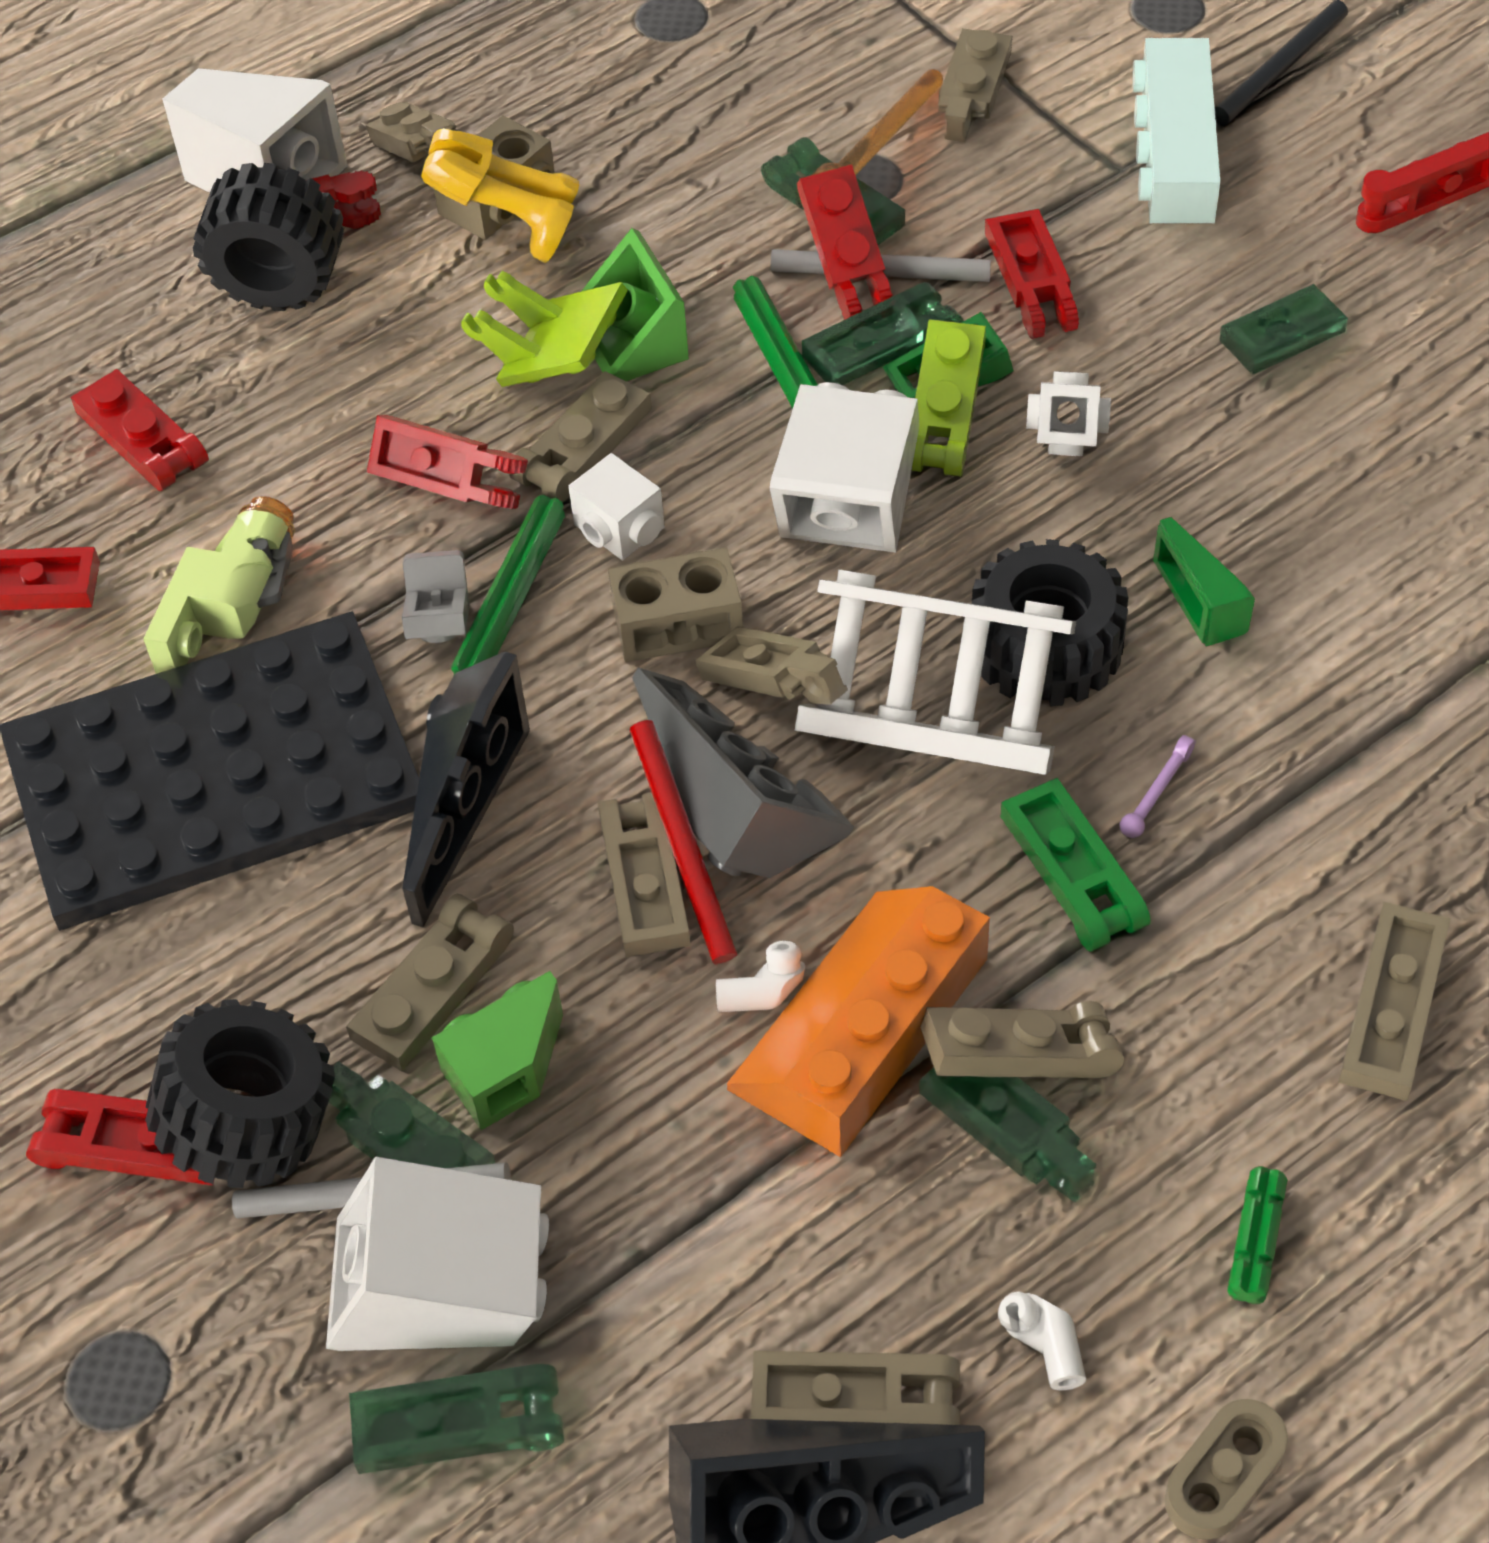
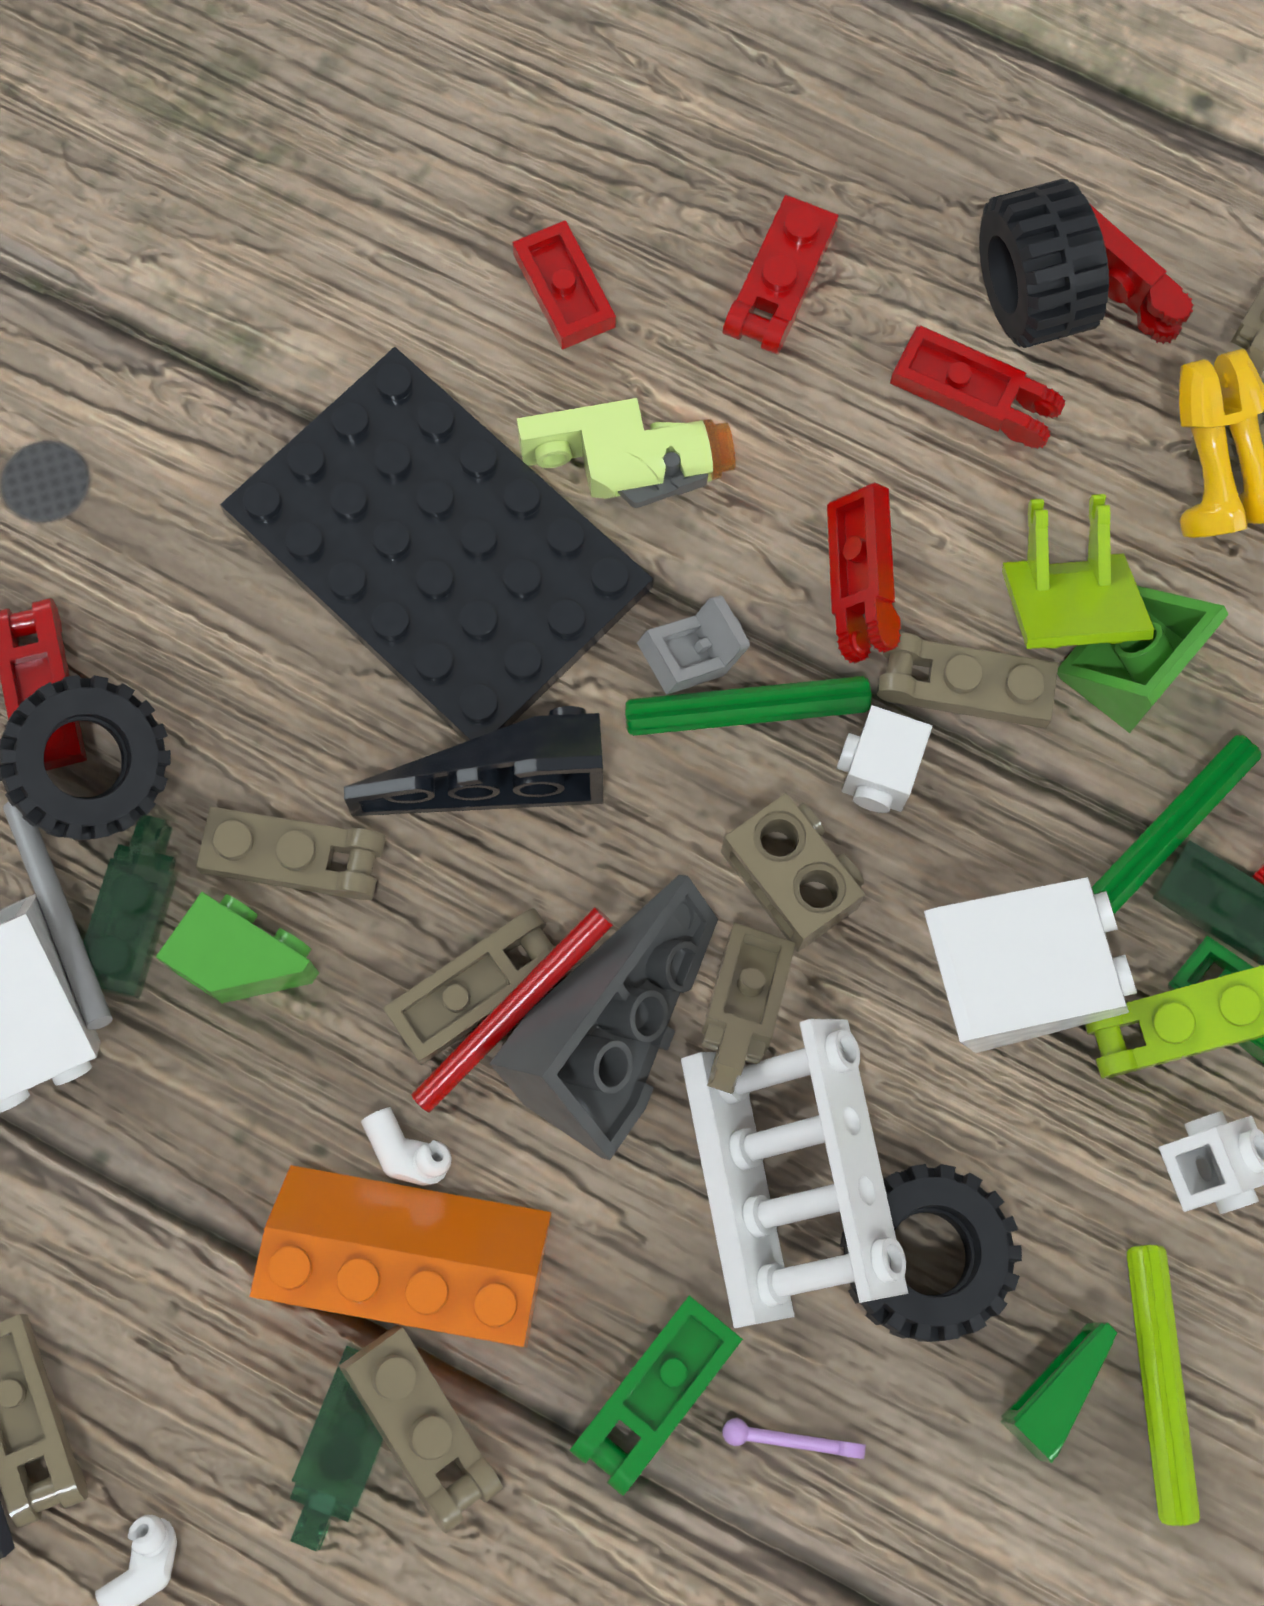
camera: 60 degrees right, 20 degrees up
(255, 119) = (1180, 176): white slope -> none
(334, 337) = (976, 386): none -> red hinge
(1225, 525) = (1163, 1386): none -> lime axle

